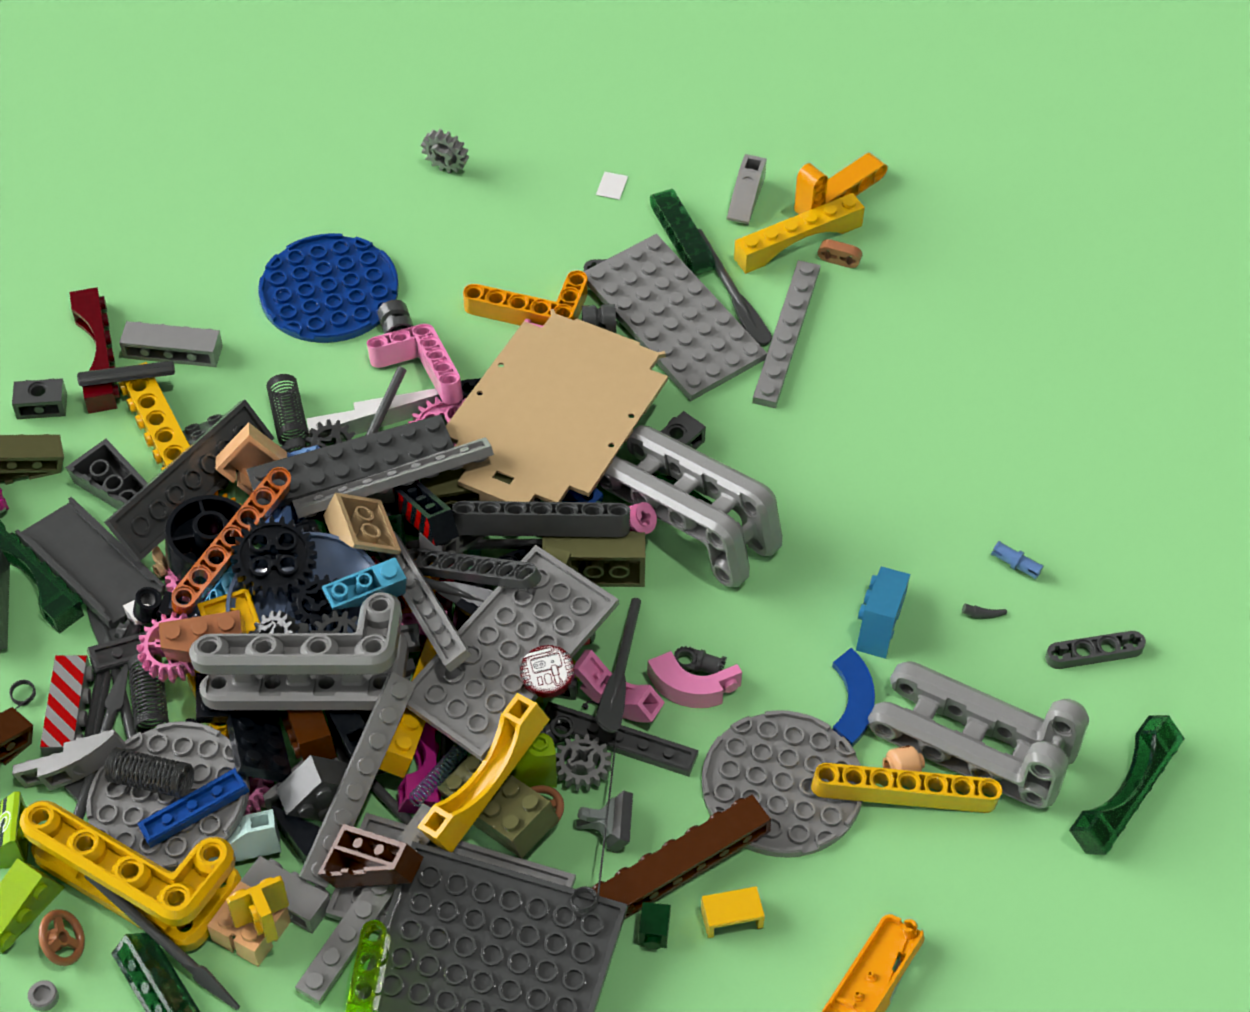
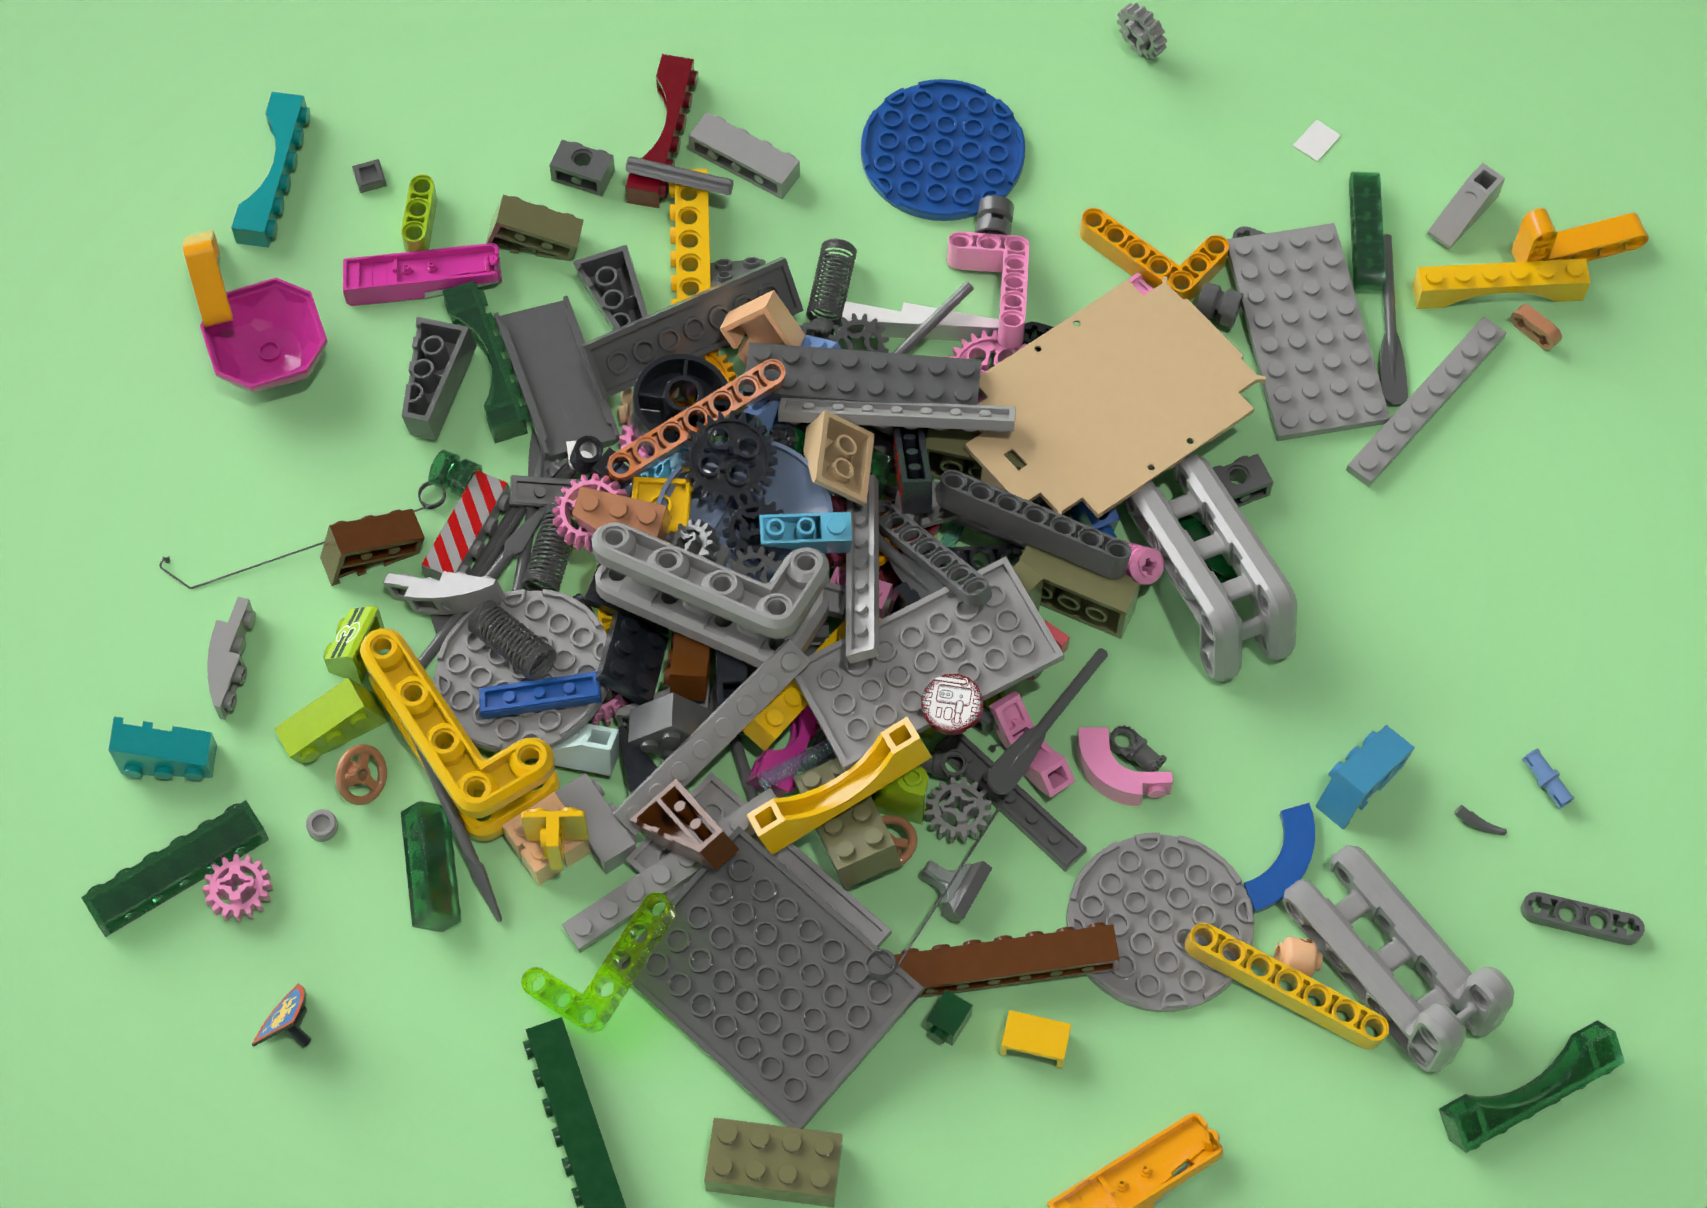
camera: 25 degrees right, 10 degrees up
(27, 666) = (450, 472): none -> clear green wheel

